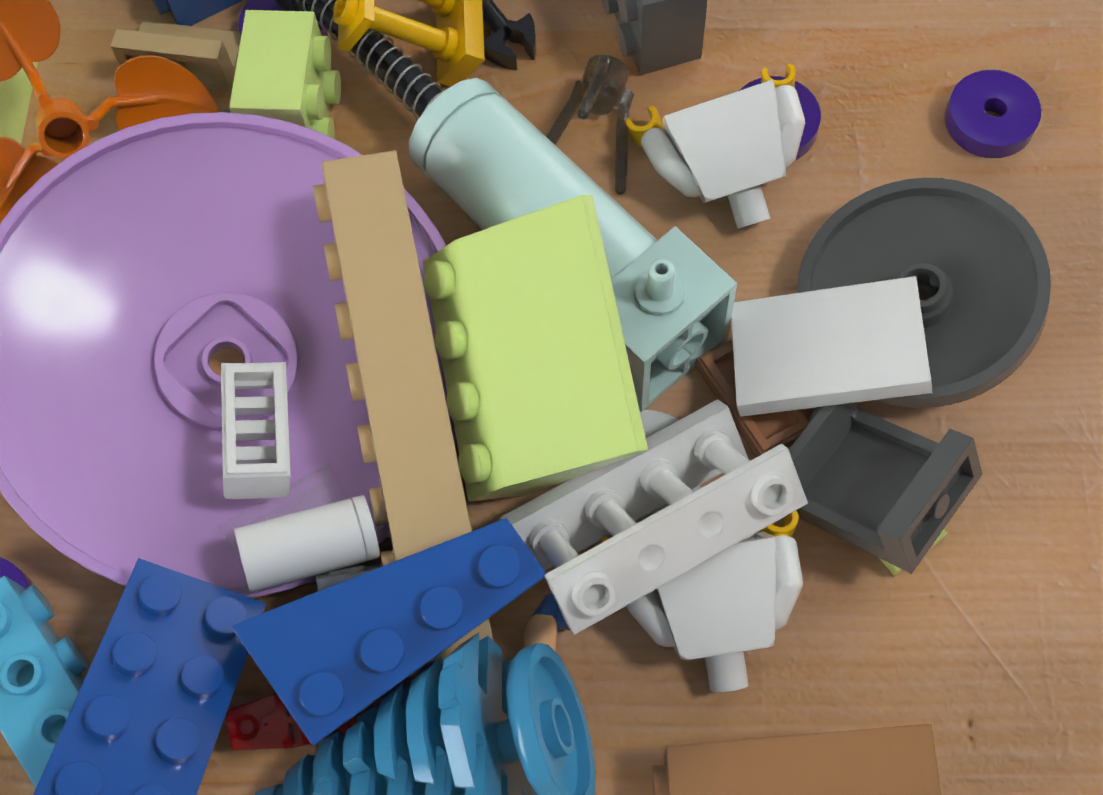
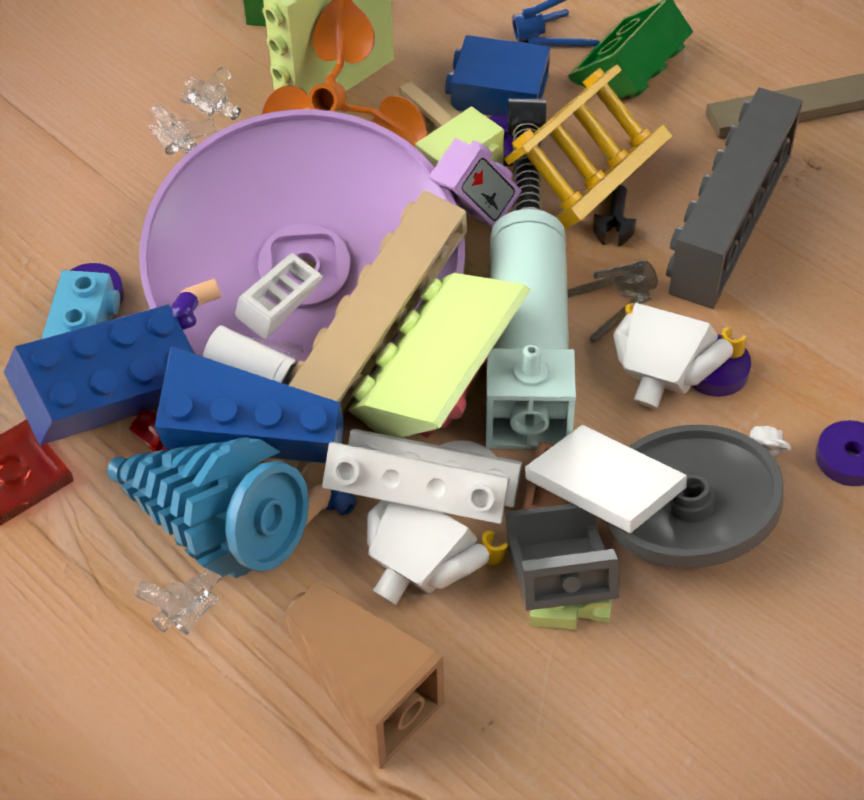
camera: 40 degrees right, 15 degrees down
(154, 530) = (191, 298): none -> arm
(344, 101) = (476, 181): none -> brick
(917, 163) = (771, 439): none -> white plant

